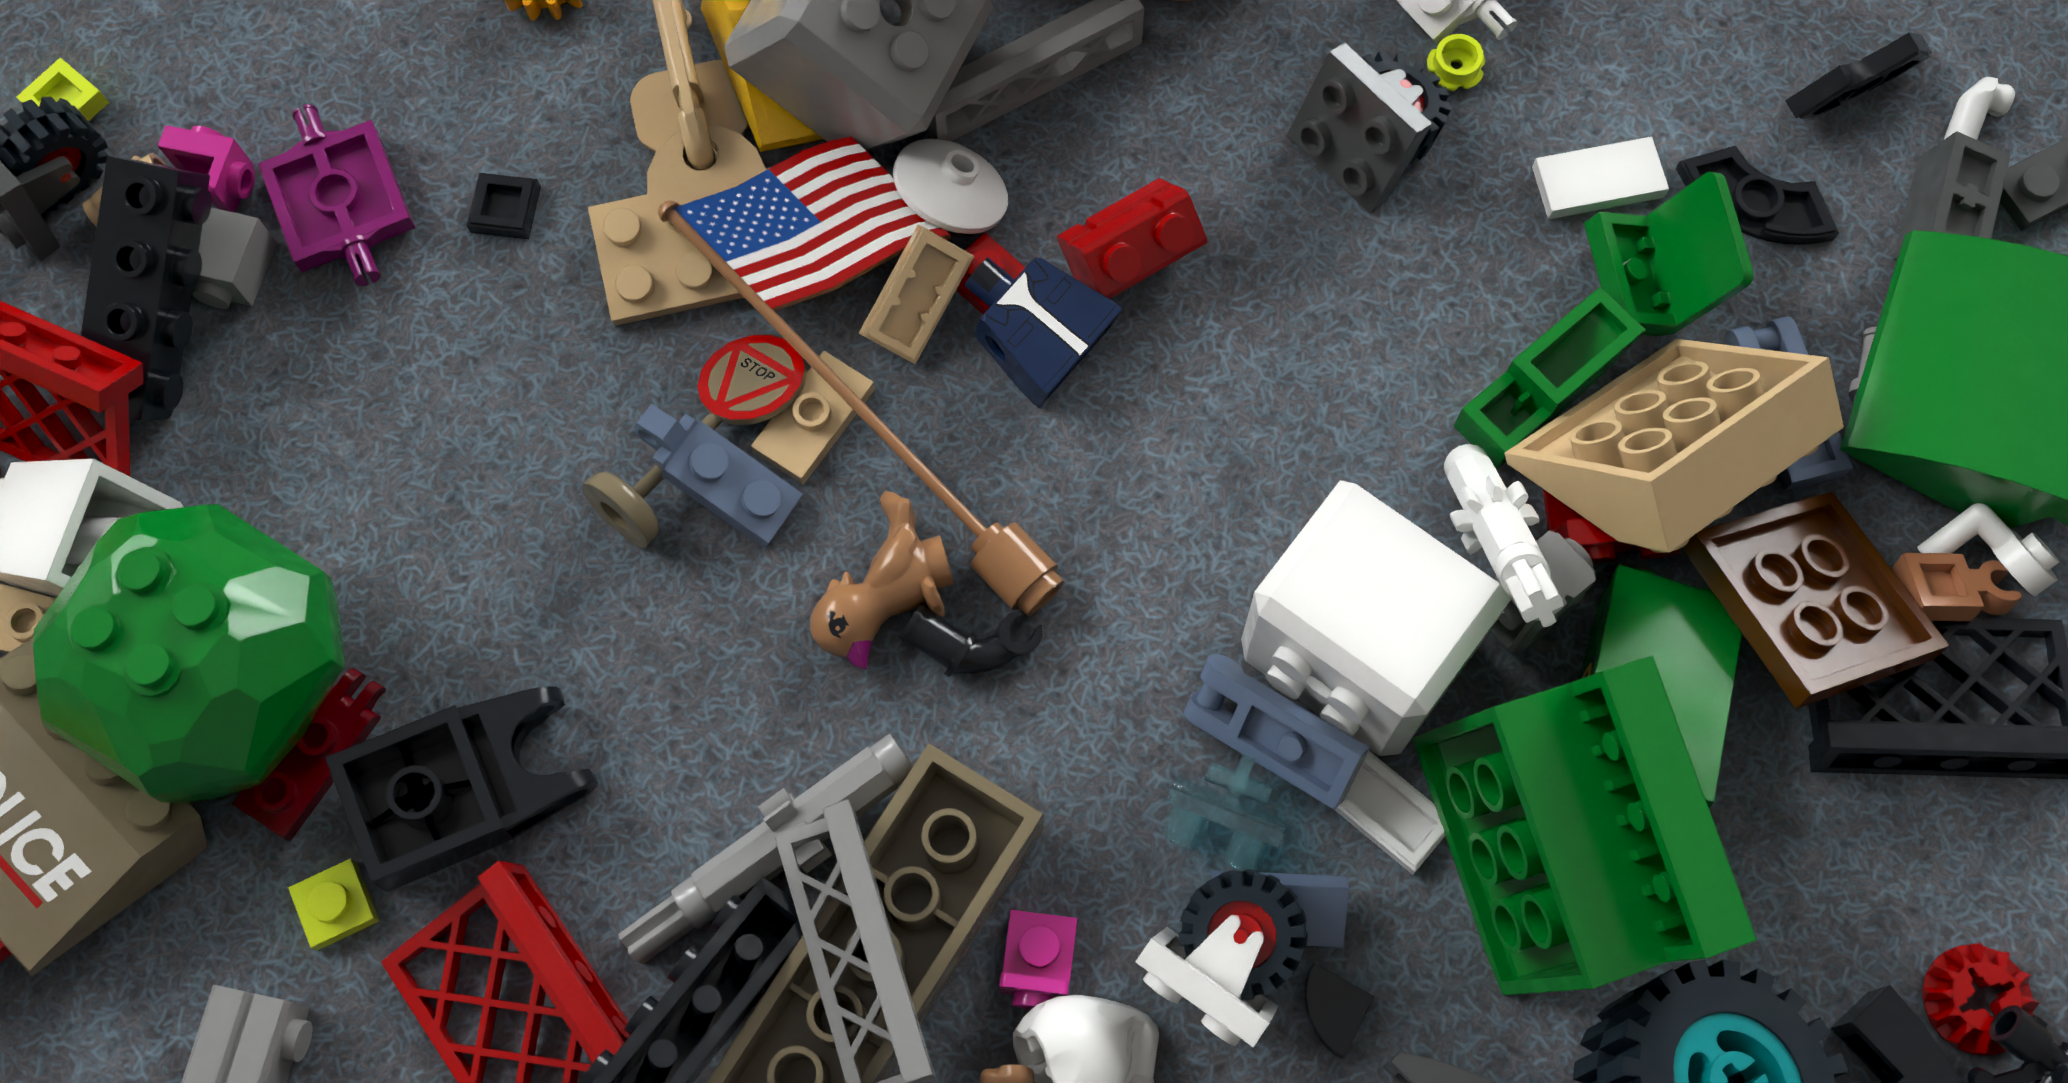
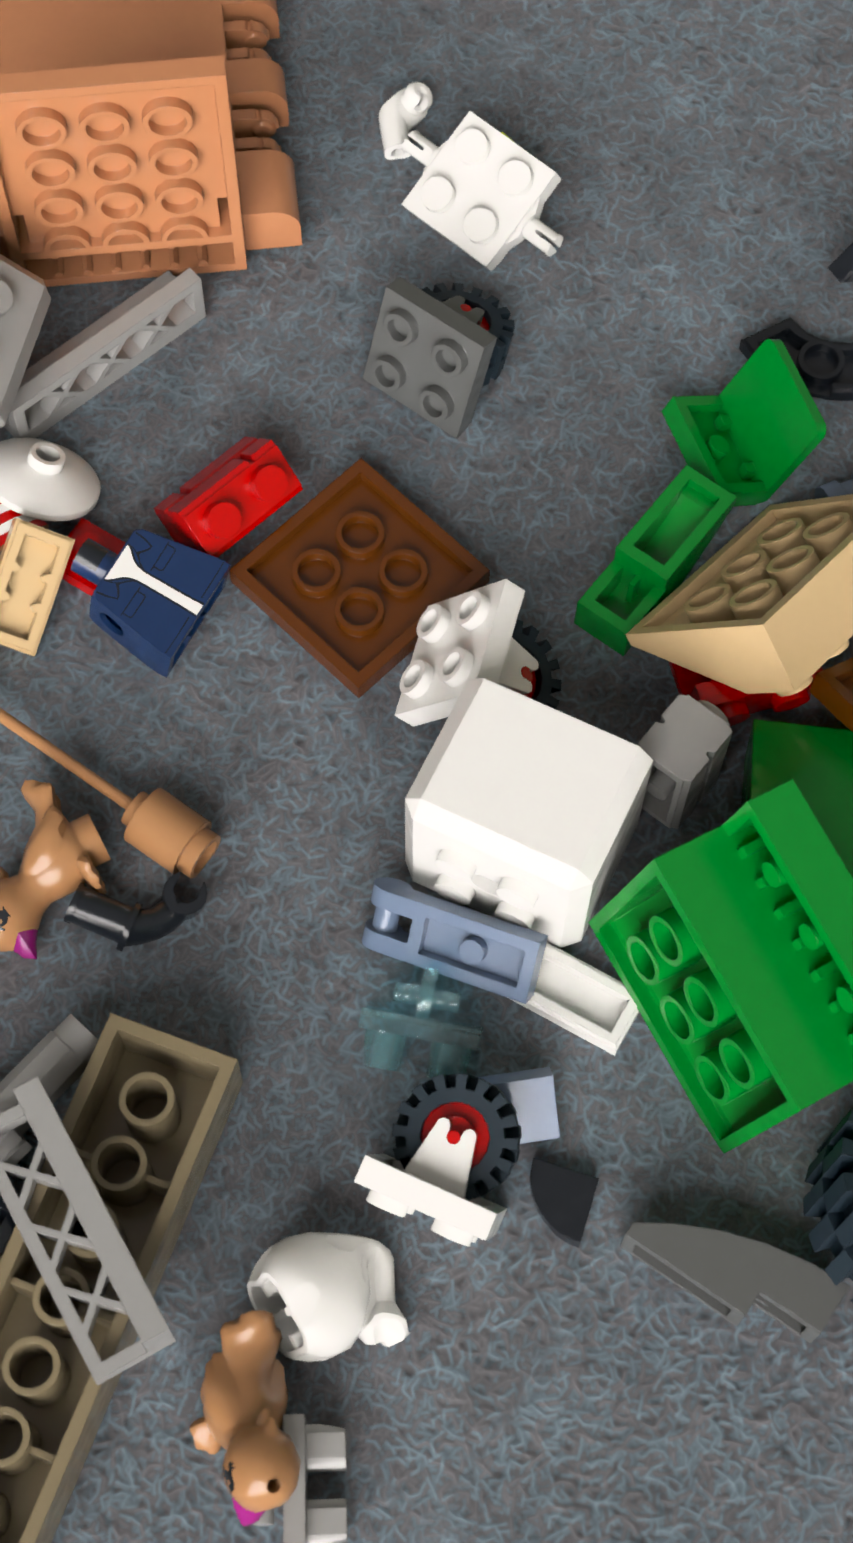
camera: 15 degrees left, 5 degrees down
(1037, 957) = (258, 1207): dark pink bracket -> none
(1248, 341) = (356, 575): none -> reddish brown plate
(1351, 437) = (471, 640): none -> white plate
(1459, 49) = (518, 272): neon yellow plate -> none
(1499, 524) = (634, 700): white piece -> none
(1600, 177) = (669, 368): white tile -> none

